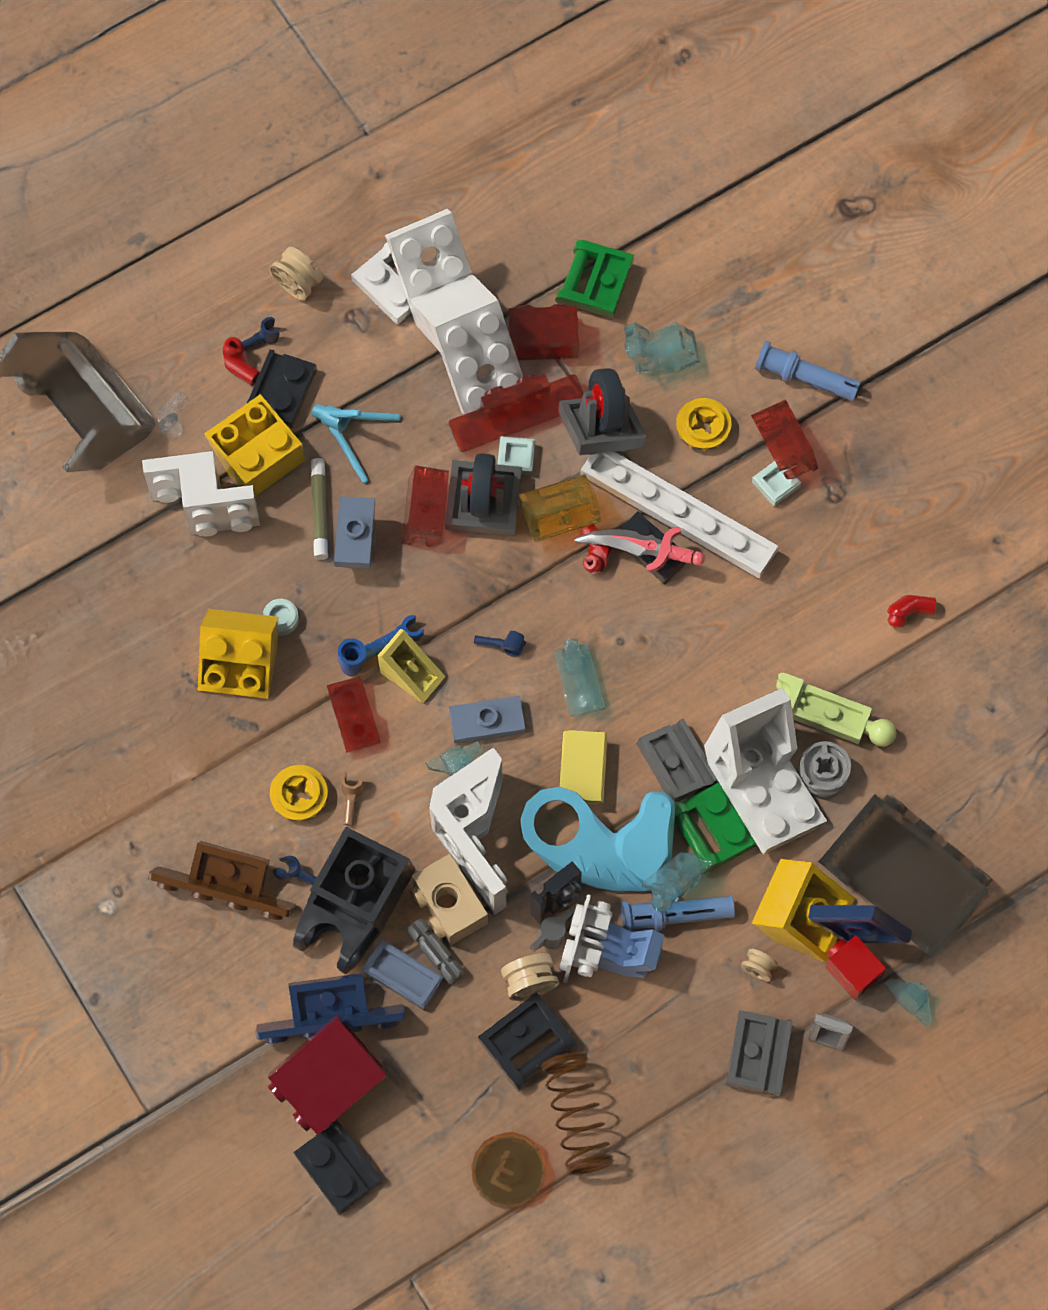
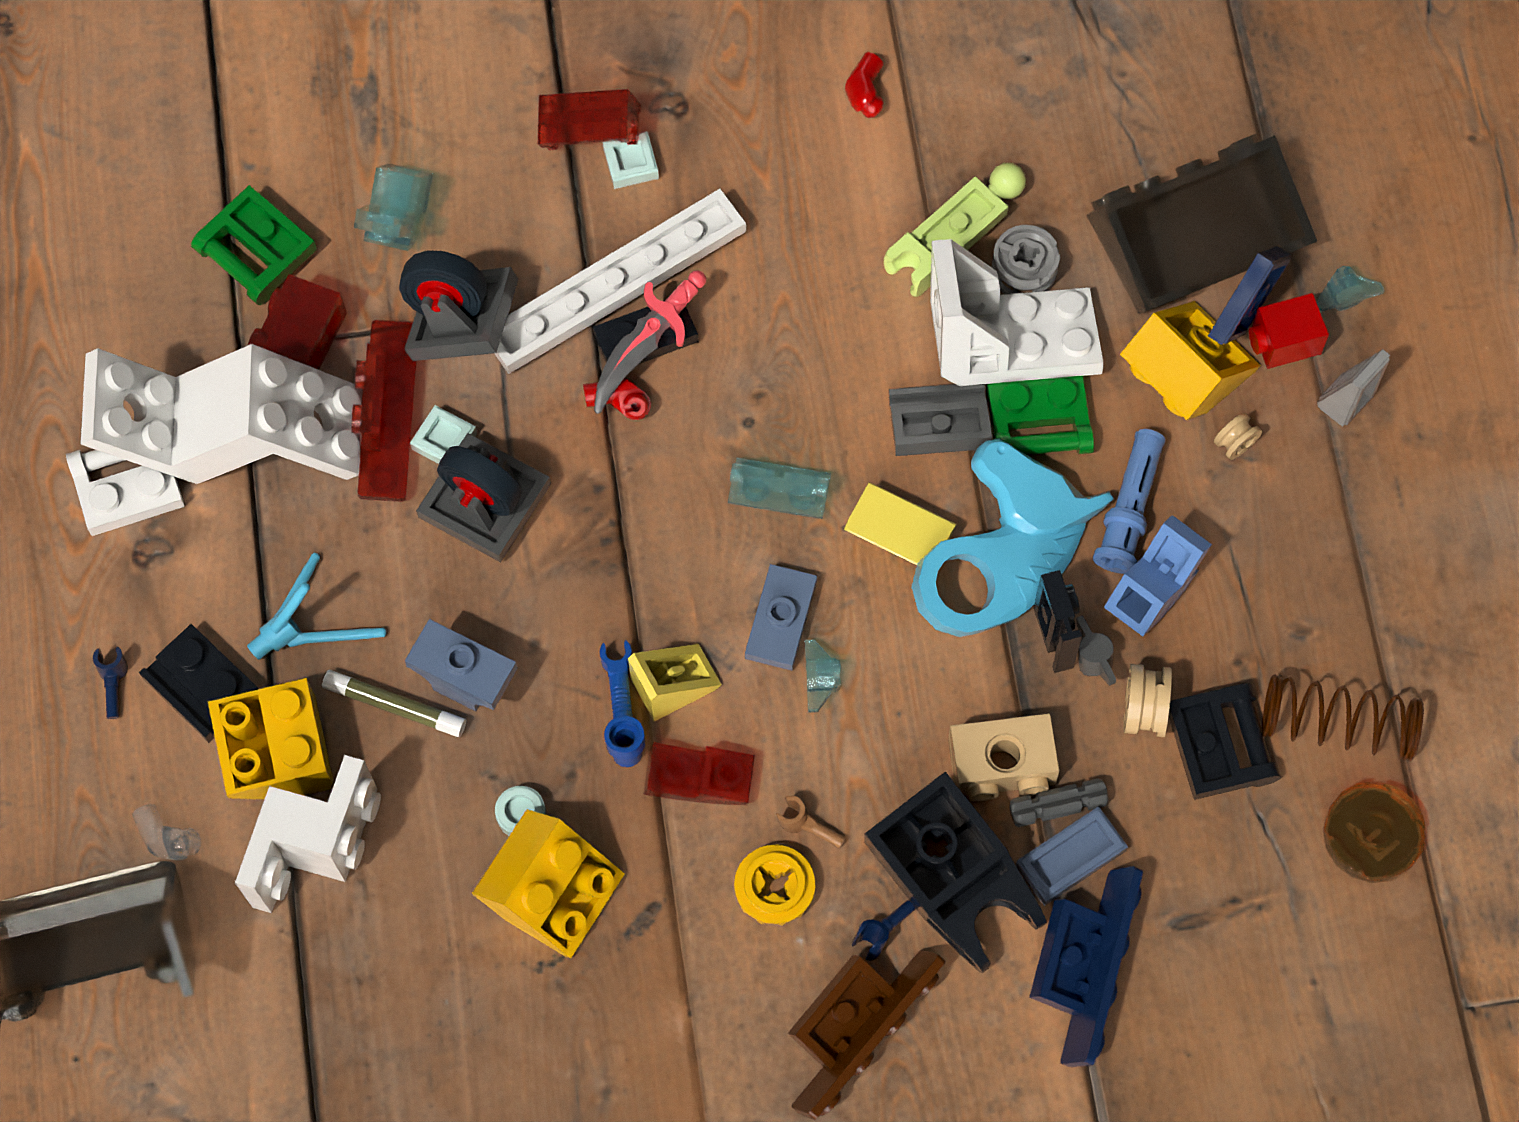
camera: 65 degrees left, 0 degrees up
(236, 361) = (133, 722): red arm -> none
(296, 273) = (50, 591): tan wheel -> none
(326, 1075) = (1179, 996): dark red brick -> none
(337, 1167) = (1290, 1037): black plate -> none
(425, 505) = (460, 569): clear red hinge -> none
(463, 815) = (904, 686): white bracket -> none
(511, 645) = (697, 549): dark blue hand -> none
(560, 508) = (546, 410): clear yellow brick -> none
(582, 951) = (1113, 613): white hinge -> none
(675, 879) = (1099, 477): clear light blue hinge -> none
(706, 410) = (497, 196): yellow gear -> none
(759, 1053) = (1345, 483): dark grey plate -> none
(791, 366) = (493, 75): medium blue pin -> none

